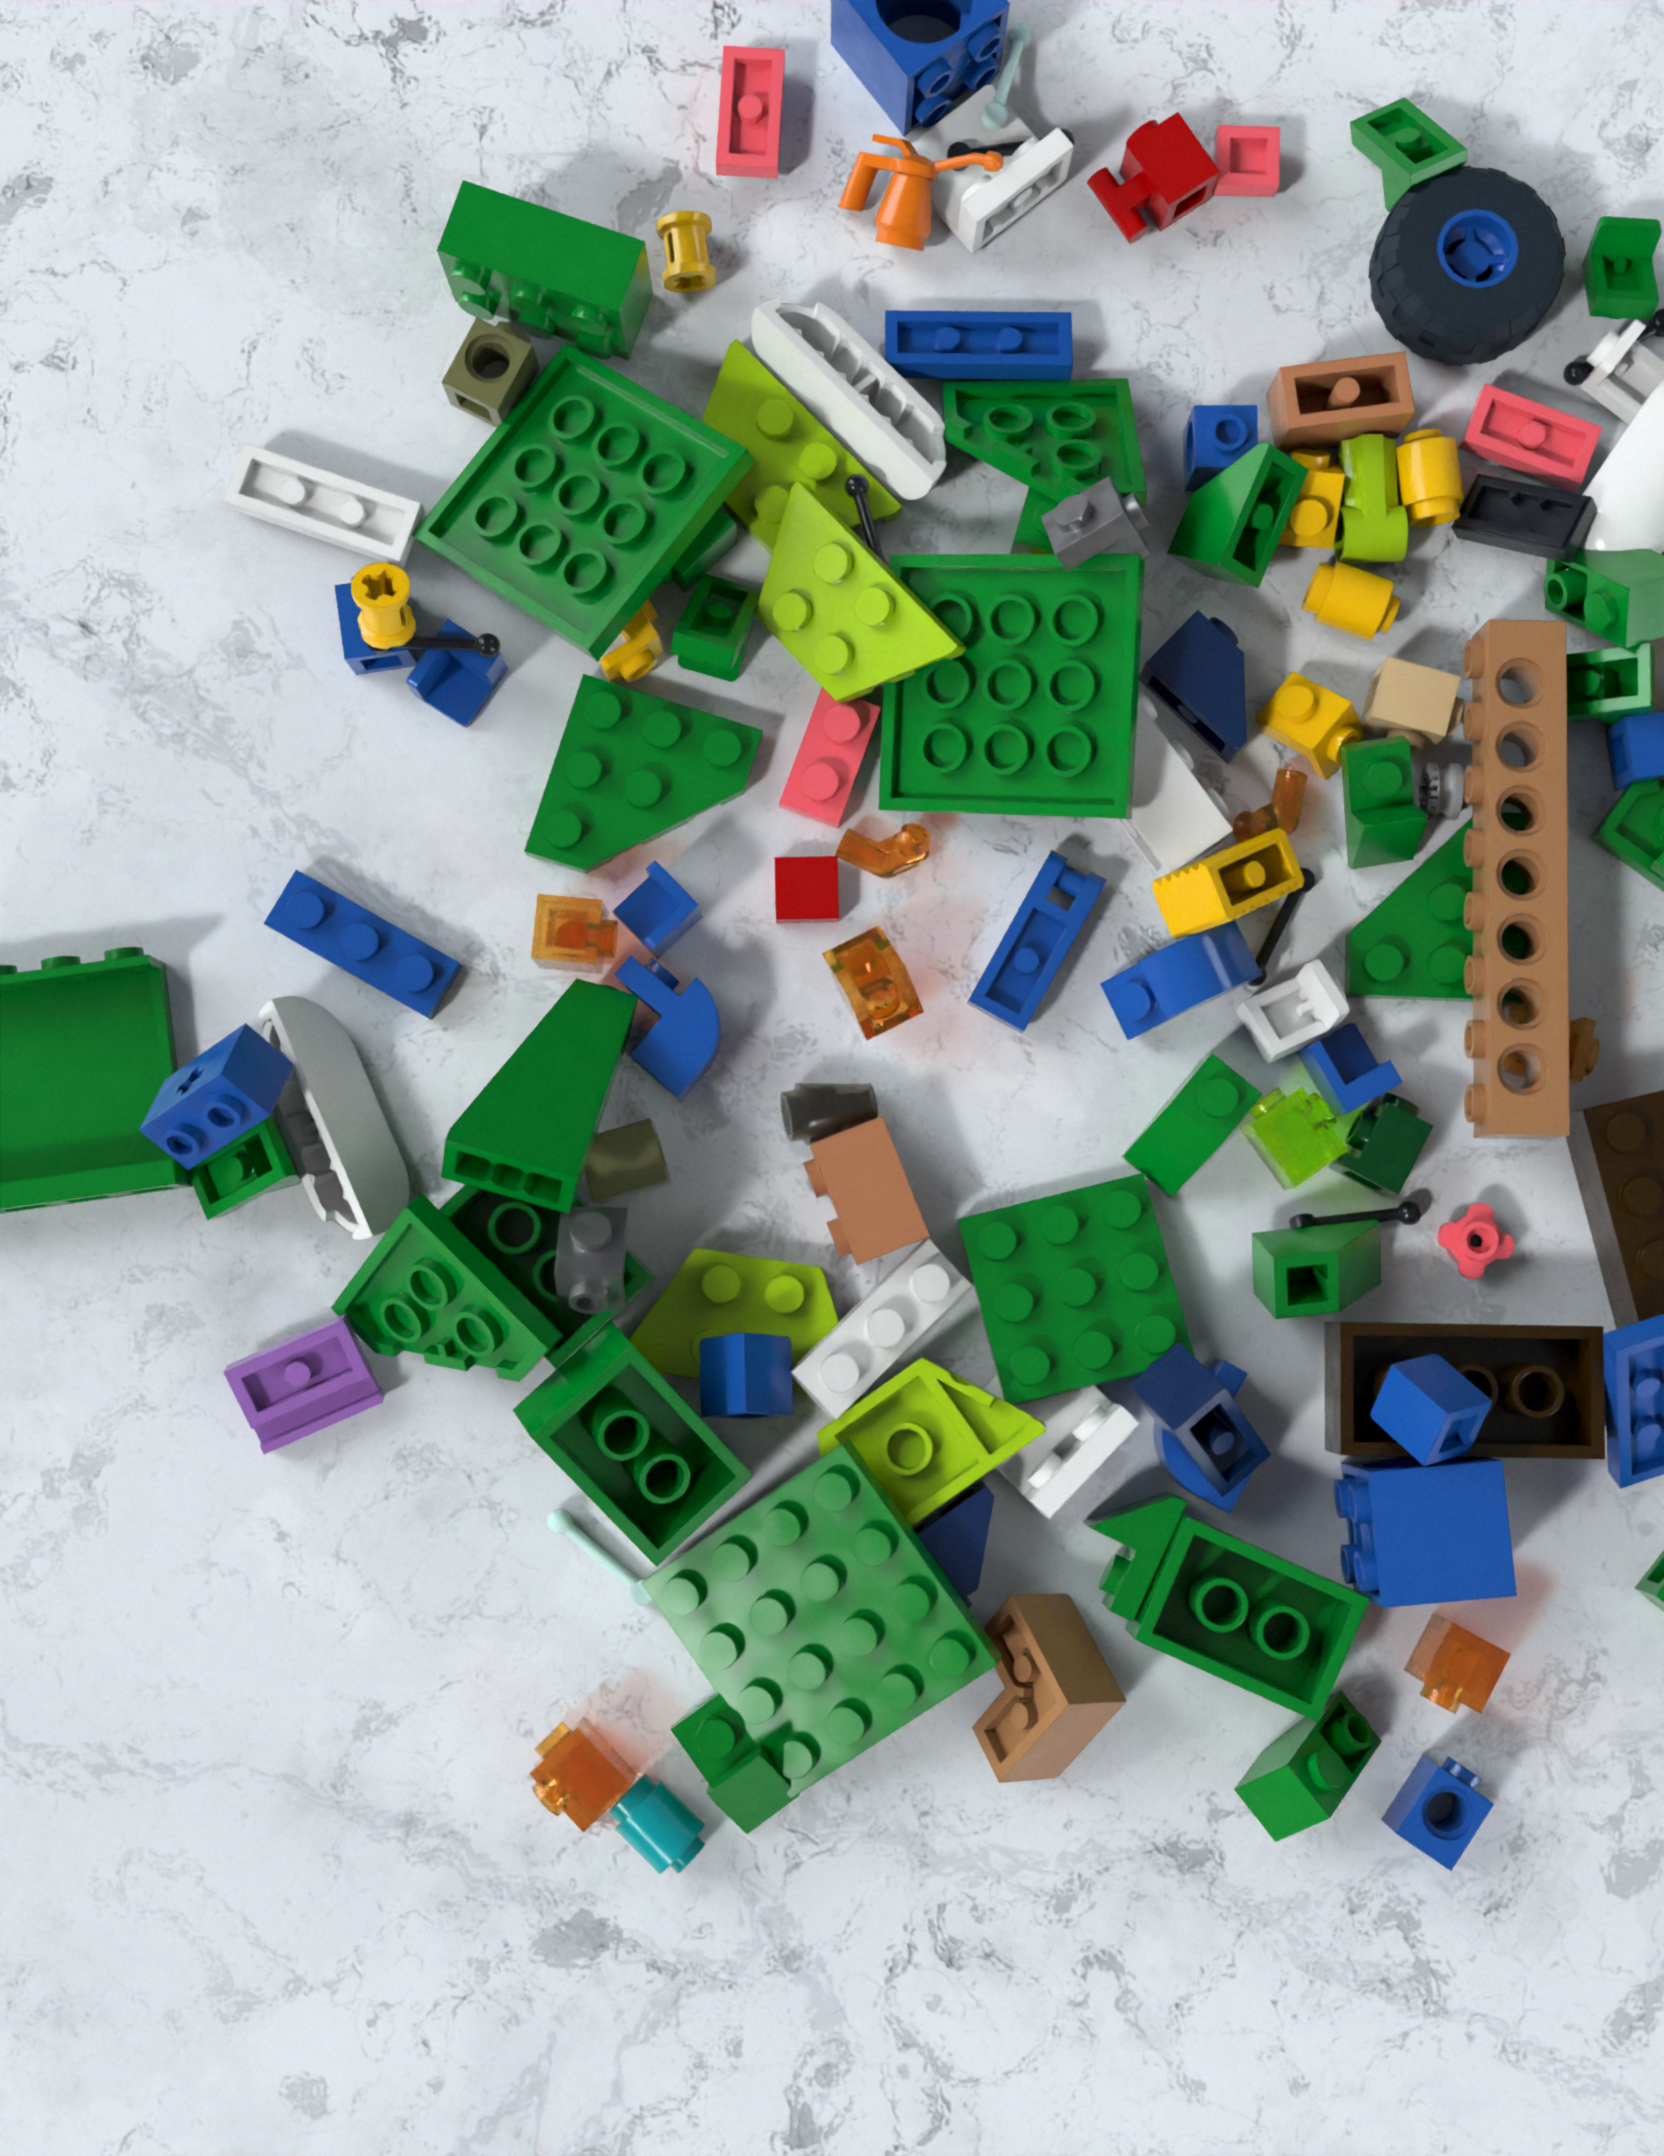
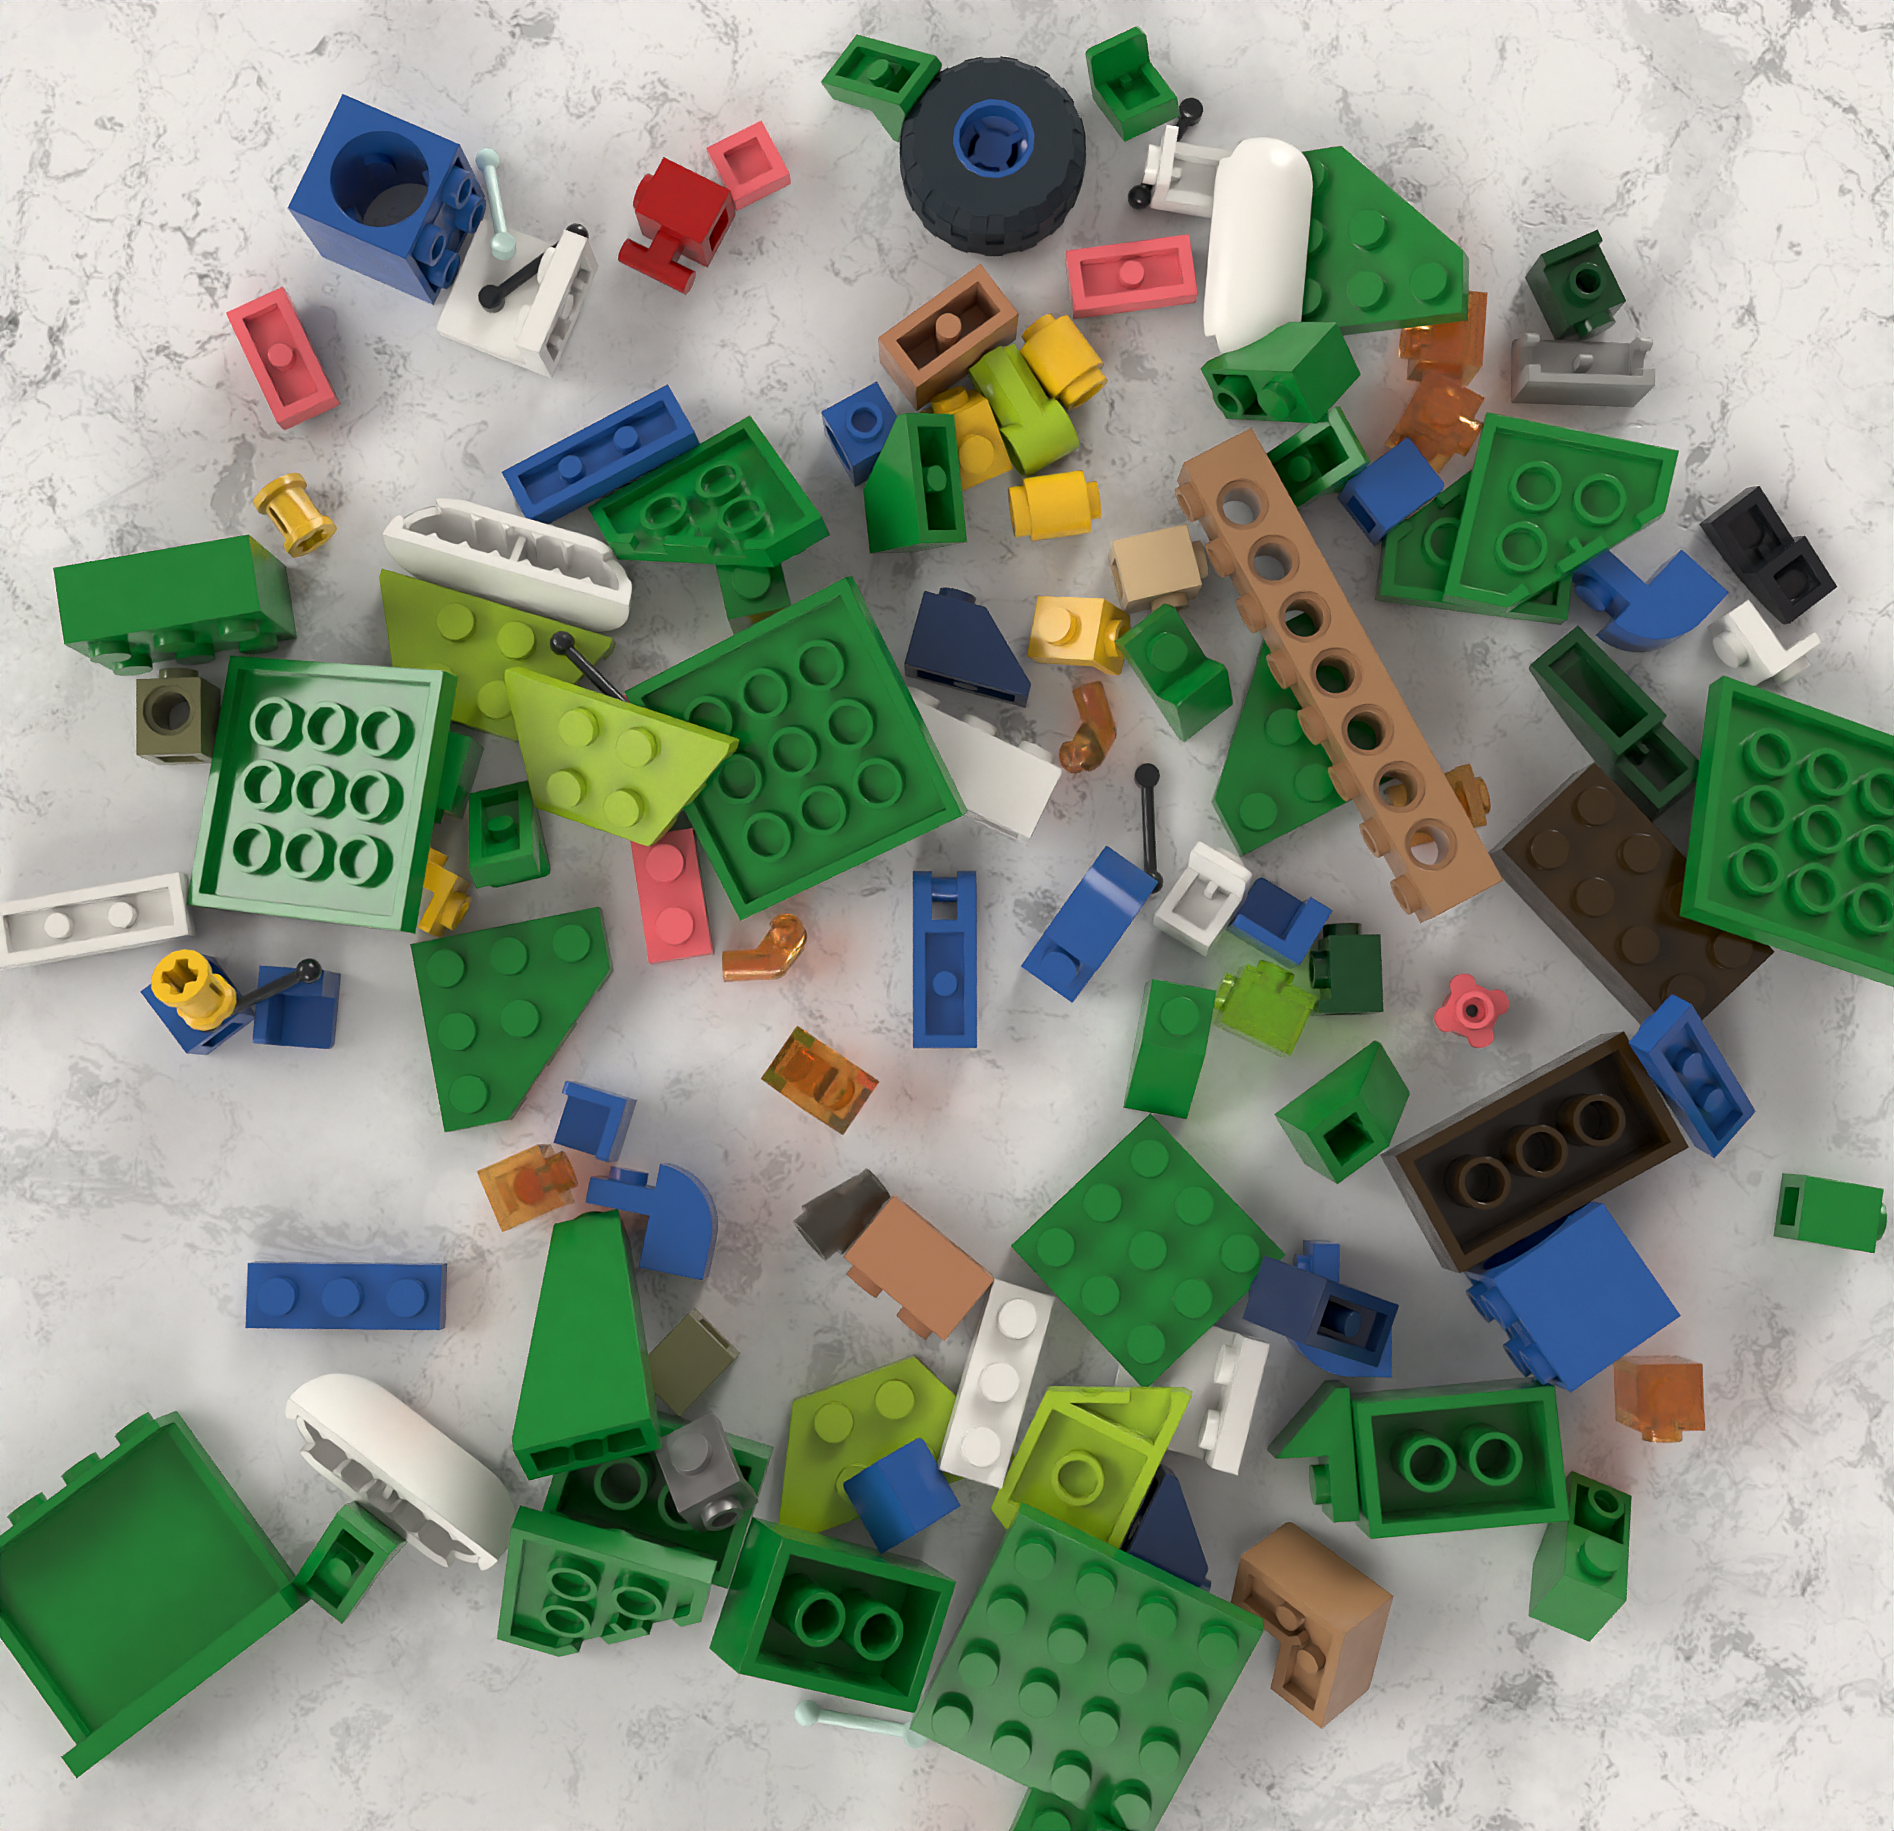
camera: 30 degrees left, 0 degrees up
(217, 1097) = (288, 1514): blue brick -> none
(304, 1383) = (510, 1721): medium lavender plate -> none
(806, 889) = (715, 1025): red tile -> none
(907, 203) = (468, 367): orange piece -> none
(1095, 521) = (790, 569): flat silver bracket -> none
(1228, 884) = (1084, 820): yellow brick -> none
(1407, 1212) = (1398, 1018): black hinge -> none
(1430, 1409) = (1515, 1191): blue panel -> none
(1442, 791) = (1226, 631): light grey bush -> none
(1445, 1838) = (1729, 1555): blue brick -> none
(1524, 518) = (1165, 351): black plate -> none

